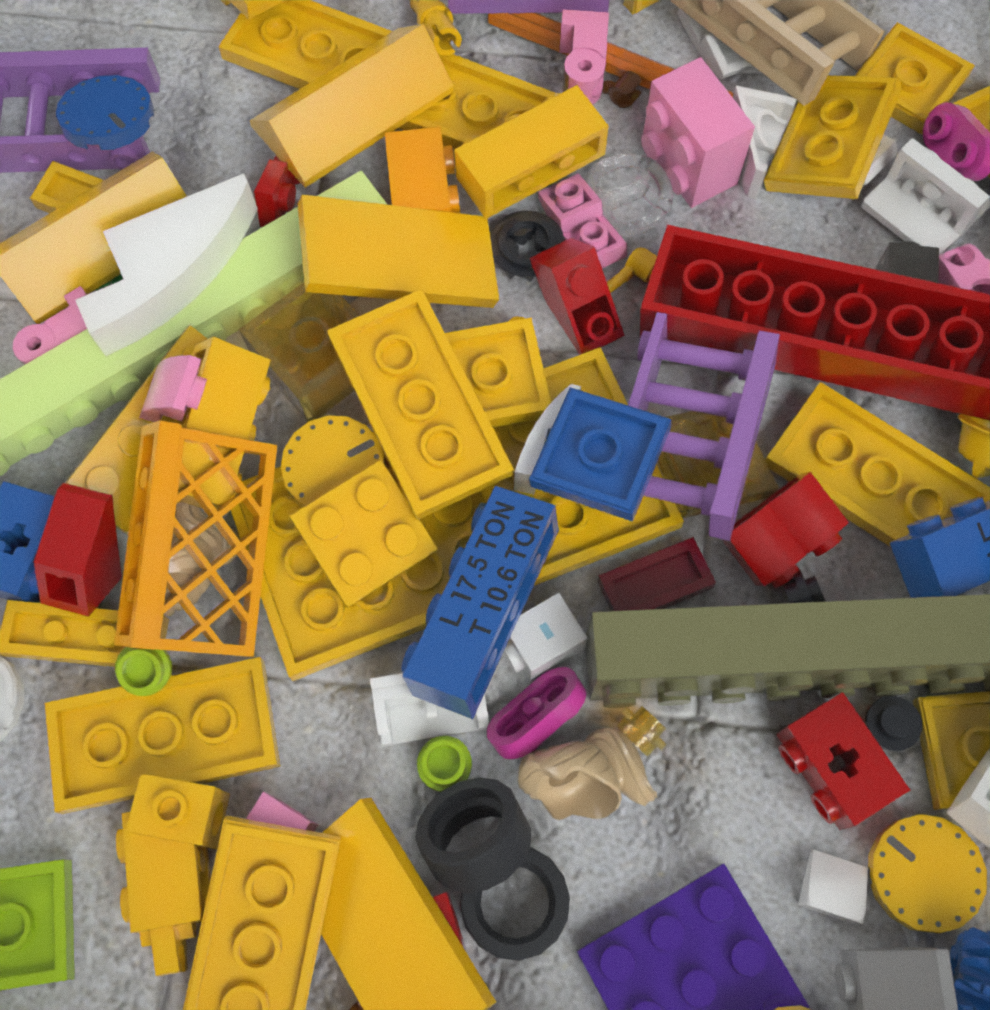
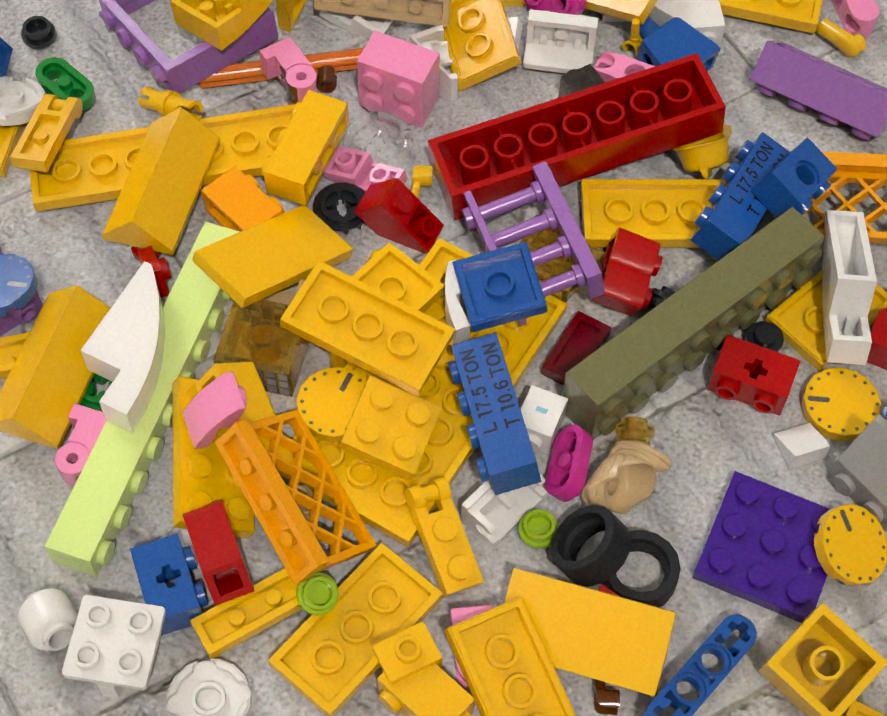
camera: 40 degrees left, 10 degrees down
(327, 702) = (443, 537): none -> yellow plate

